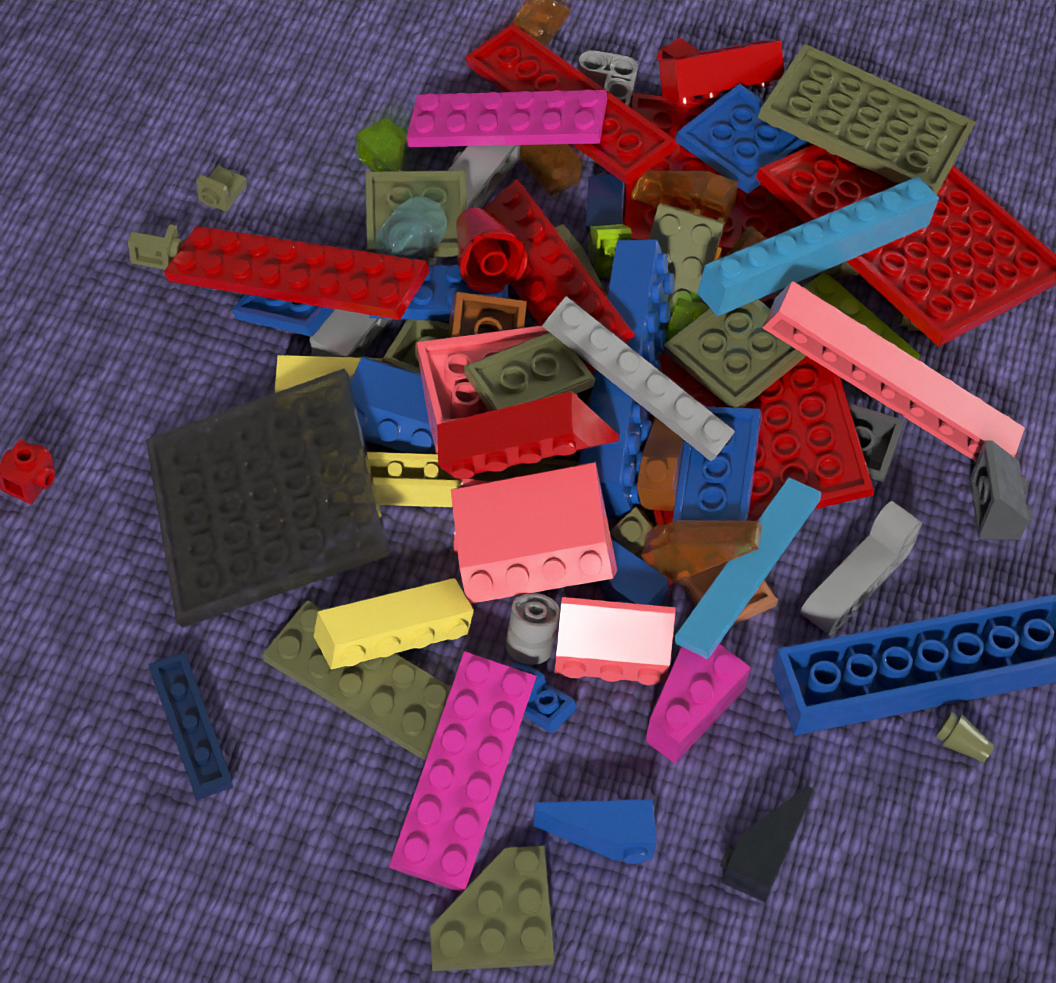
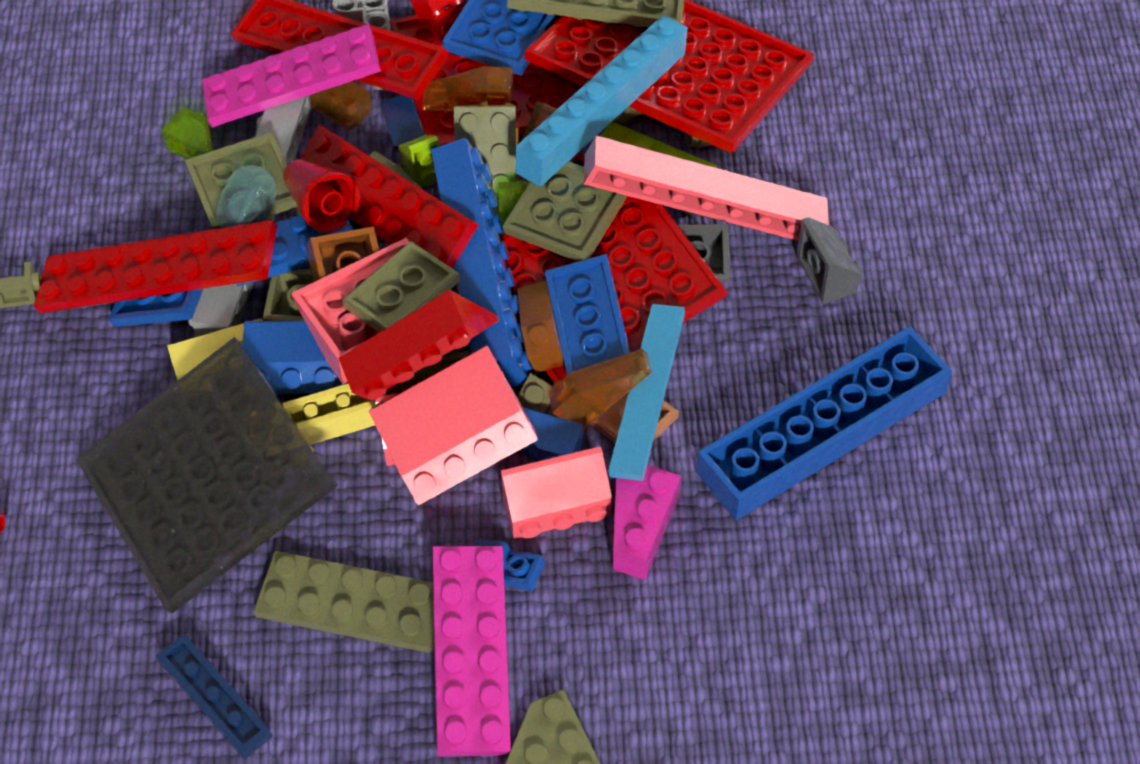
camera: 15 degrees left, 0 degrees up
(220, 188) = (56, 216): olive bracket -> none
(393, 623) = (359, 544): light yellow brick -> none
(532, 628) = (482, 507): light grey wheel -> none
(608, 827) = (611, 654): blue slope -> none
(638, 378) = (495, 261): light grey plate -> none
(763, 848) = (748, 625): black slope -> none
(864, 569) = (740, 361): light grey beam -> none
(962, 736) = (875, 473): olive cone -> none

